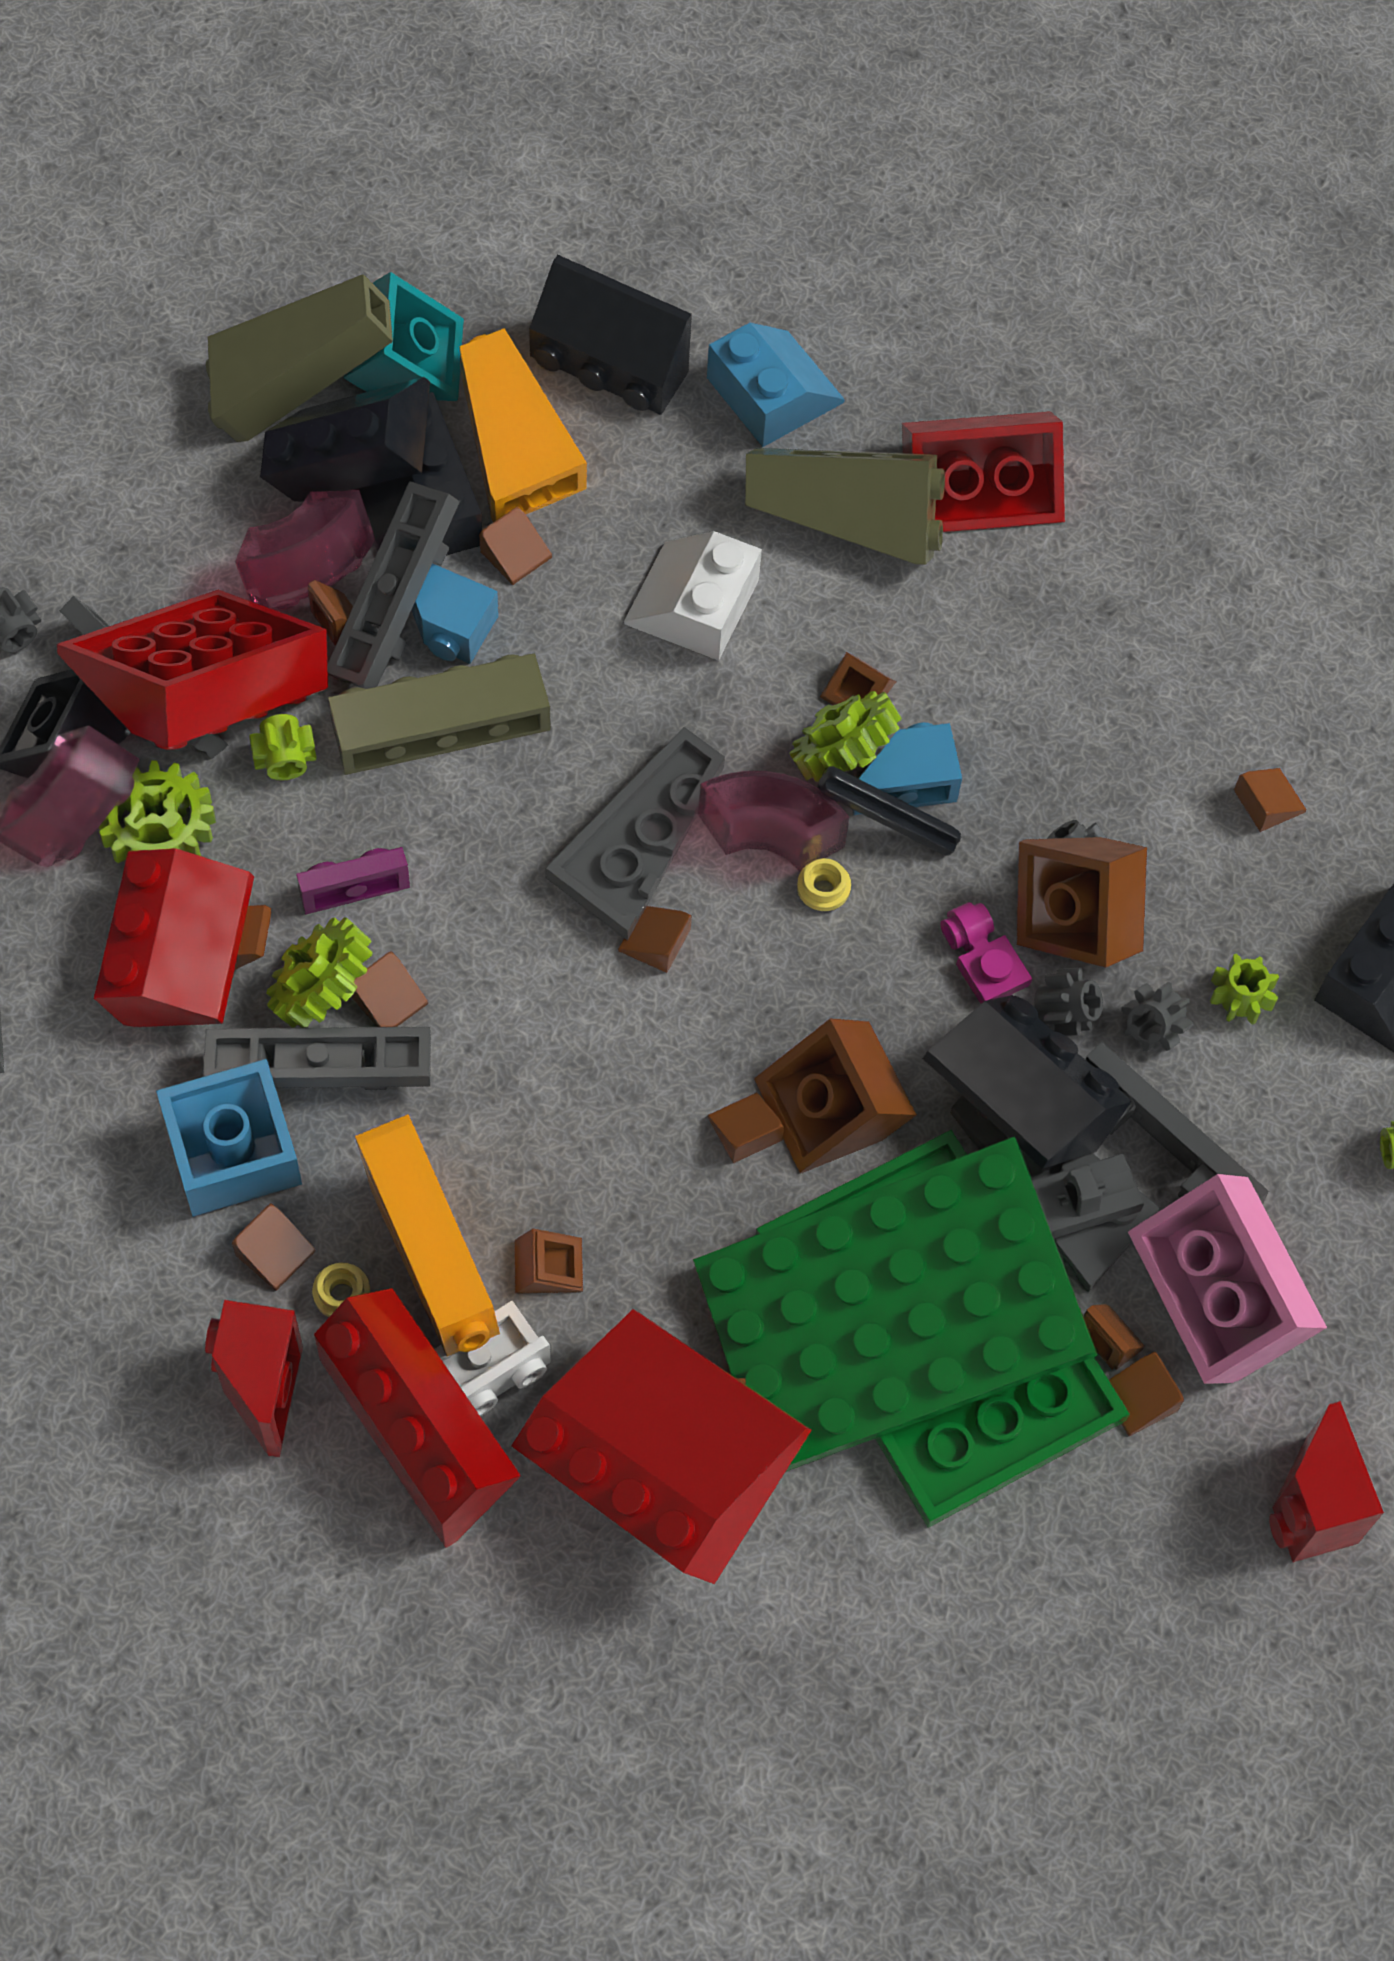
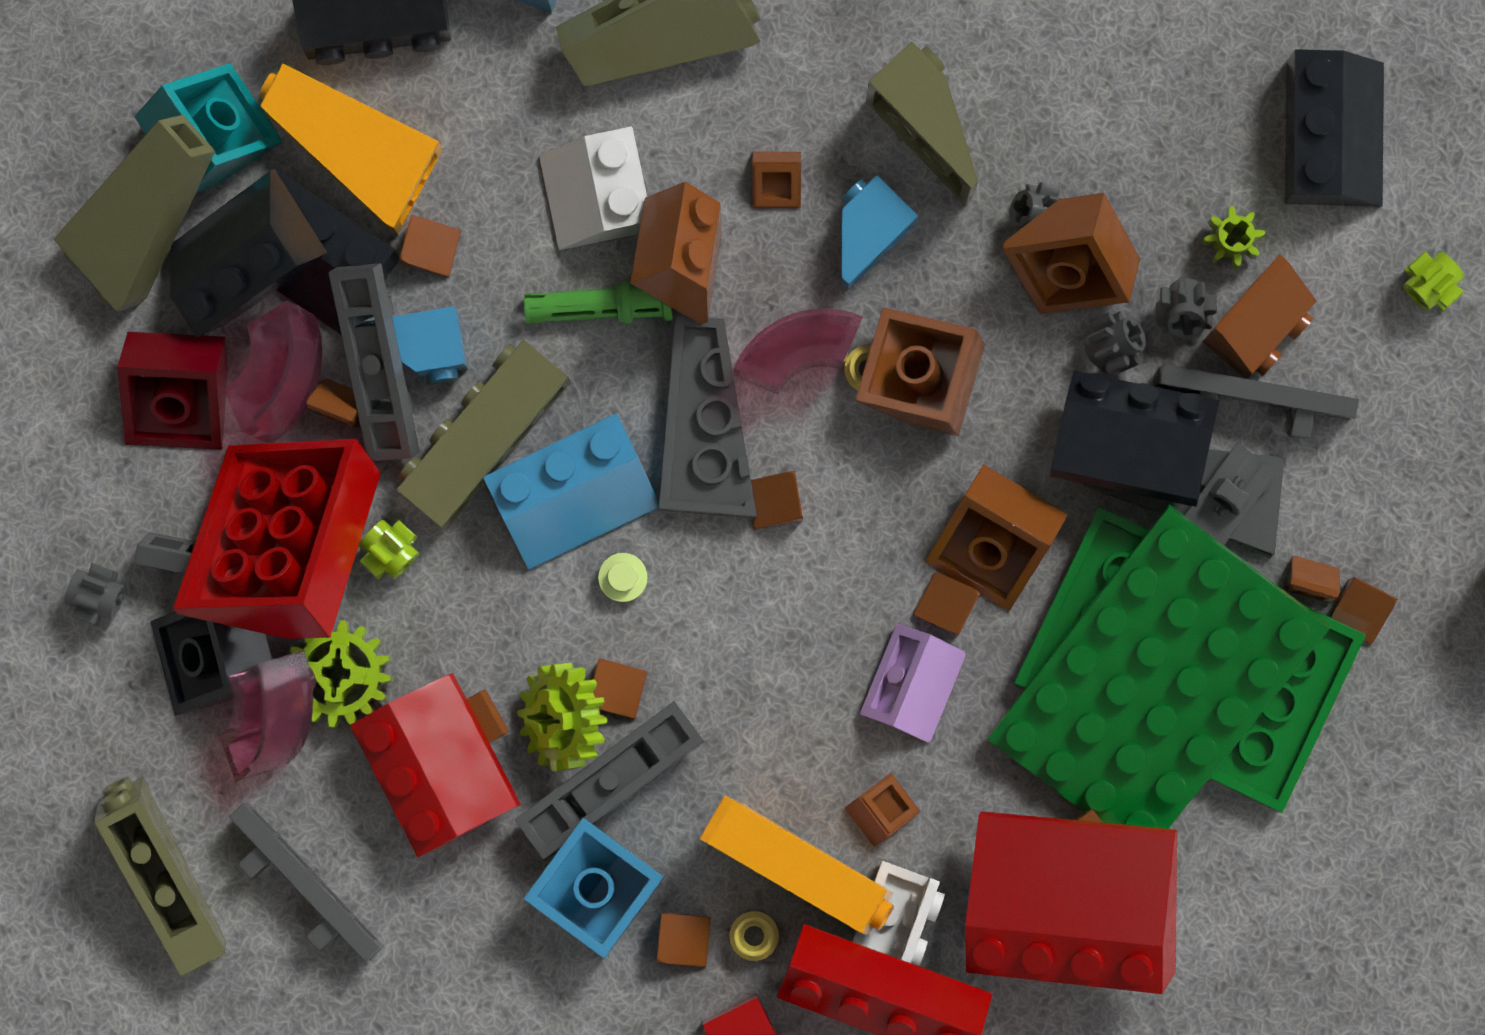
camera: 30 degrees left, 20 degrees up
(205, 511) = (173, 390): none -> dark red slope
(353, 880) = (535, 601): magenta plate -> none
(468, 908) = (623, 577): none -> yellowish green plate
(480, 804) = (572, 491): none -> dark azure slope
(646, 691) = (620, 302): none -> bright green pin
(664, 1171) = (913, 682): none -> lavender panel
(729, 668) = (679, 249): none -> dark orange slope
(846, 735) = (806, 241): lime gear -> none
(871, 908) = (921, 370): none -> dark orange slope
(888, 810) = (881, 281): black axle -> none
(988, 967) = (1037, 348): dark pink plate -> none
(1024, 693) = (919, 107): none -> olive slope
(1223, 1062) = (1262, 319): none -> dark orange slope
(1226, 1279) = (1374, 491): bright pink brick -> none
(1268, 797) = (1147, 55): dark orange slope -> none

